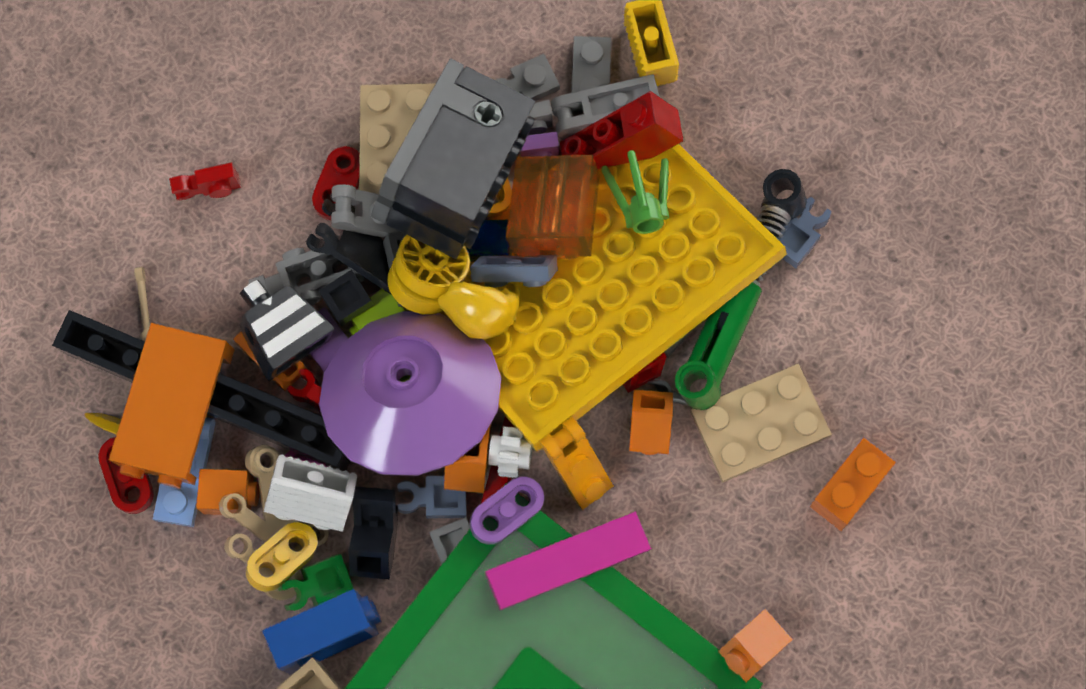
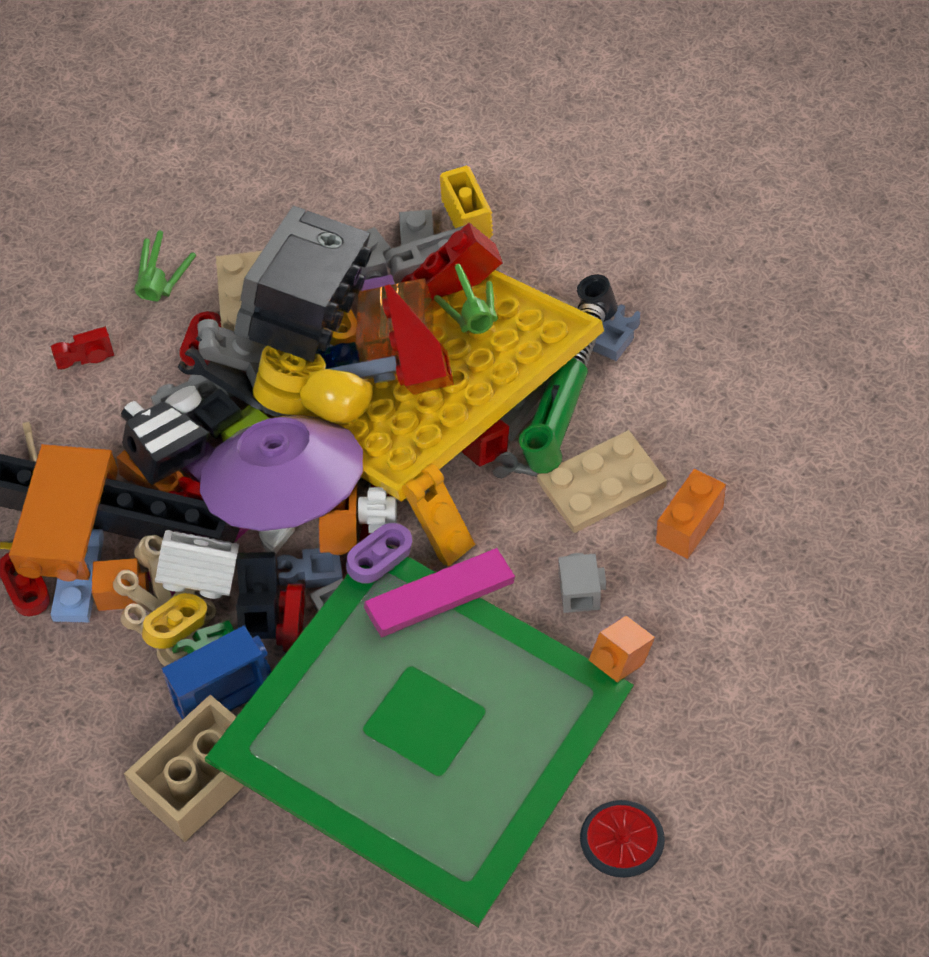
camera: 10 degrees left, 20 degrees down
(287, 98) = (152, 280): none -> bright green plant
(310, 280) = (185, 399): none -> white tile
(410, 541) = (293, 606): none -> red plate
(576, 264) = (422, 357): none -> red slope
(651, 422) = (502, 485): orange brick -> none
(722, 553) = (580, 582): none -> light grey brick

